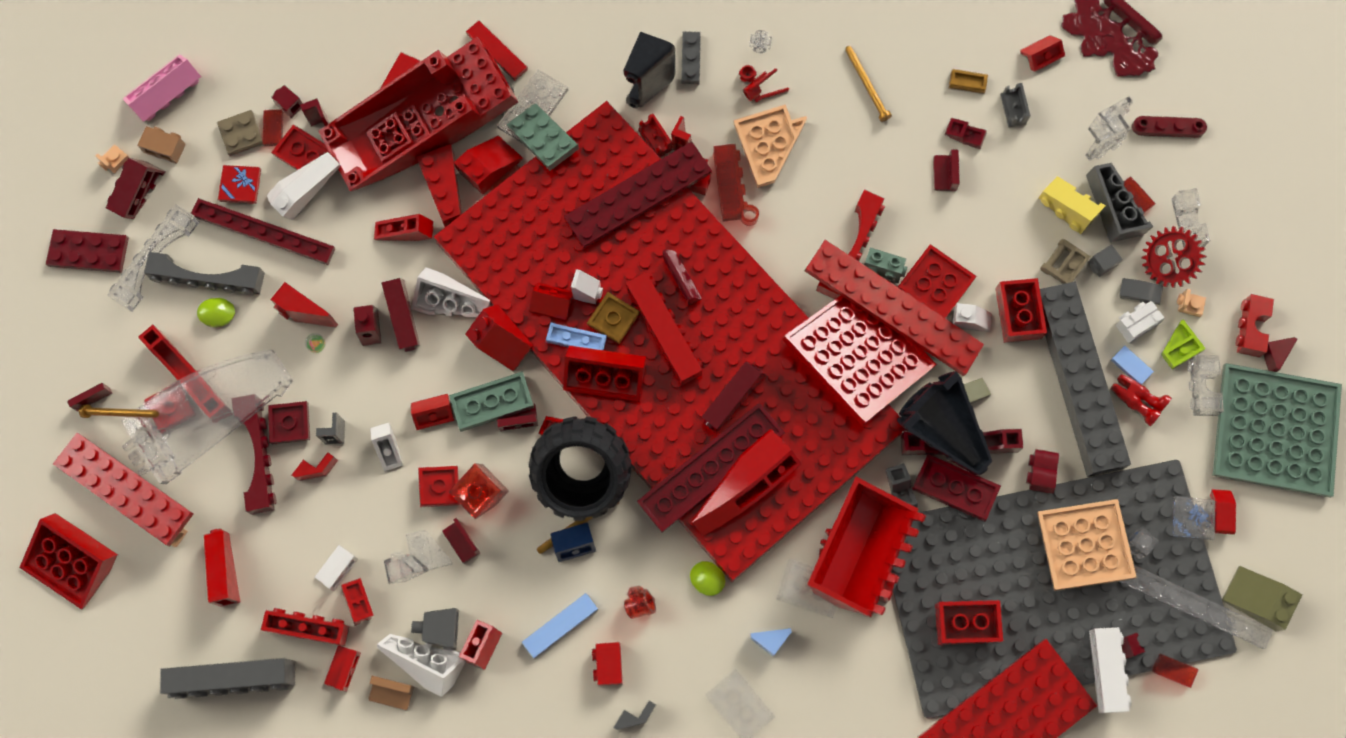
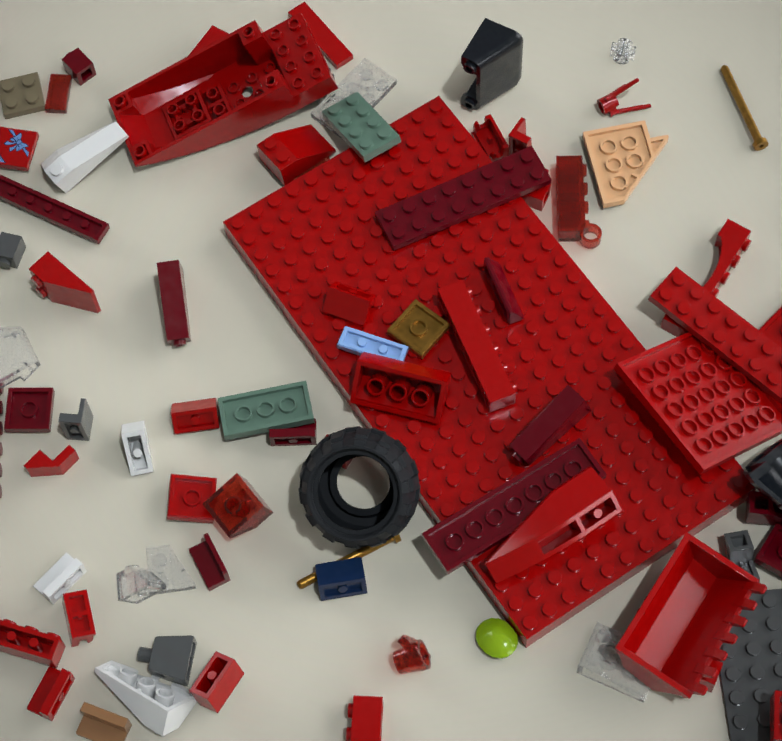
camera: 10 degrees right, 10 degrees down
(298, 148) = (83, 116): red plate -> none
(314, 112) = (106, 79): dark red panel -> none
(315, 343) = (72, 327): clear tile -> none
(367, 321) = (134, 305): dark red torso -> none
(405, 228) = (191, 212): red slope -> none
(440, 294) = (227, 289): white wedge -> none
(442, 181) = (240, 165): red wedge -> none
(499, 337) = (283, 339): red slope -> none
(559, 625) = (313, 673): light blue tile -> none
(586, 287) = (390, 290): white slope -> none
(691, 58) = (541, 62): dark grey plate -> none
(750, 70) = (604, 80): red plate -> none
(771, 640) = (565, 717): light blue slope -> none
(886, 264) = (747, 304): sand green brick -> none

